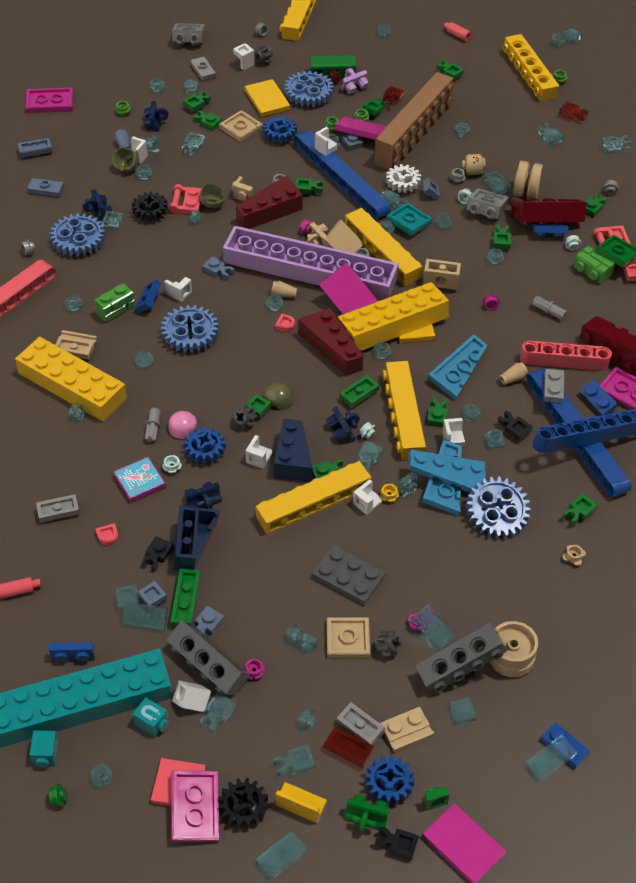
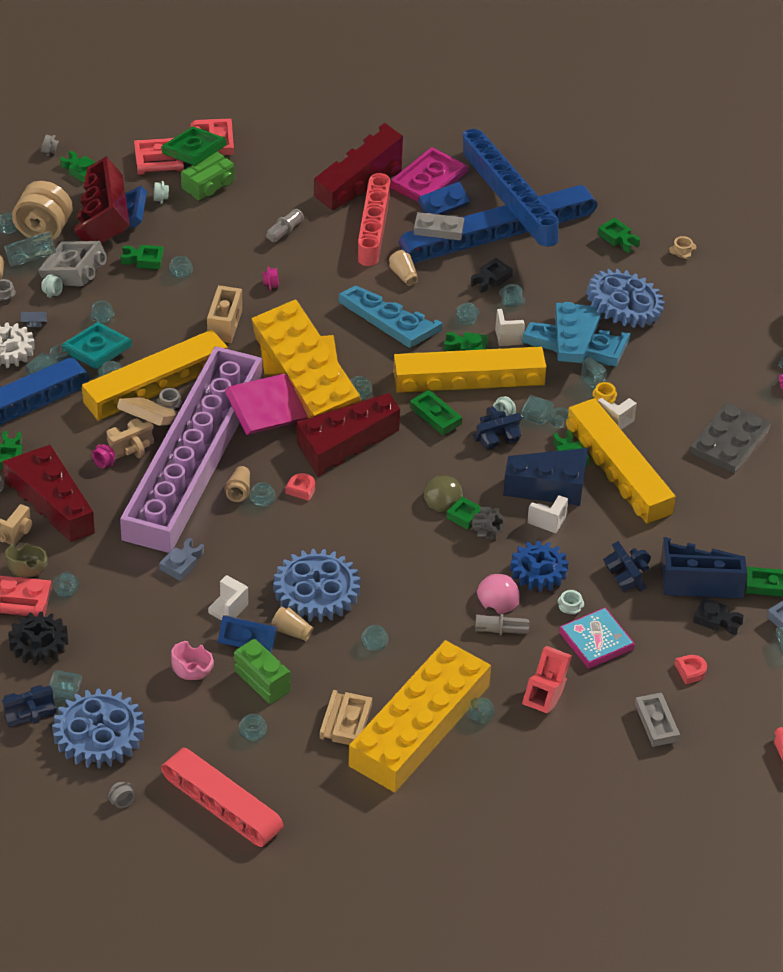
camera: 90 degrees left, 5 degrees down
(90, 445) = (549, 681): none -> coral brick
(125, 269) = (191, 662): none -> bright pink hair
(156, 317) = (291, 624): none -> tan cone

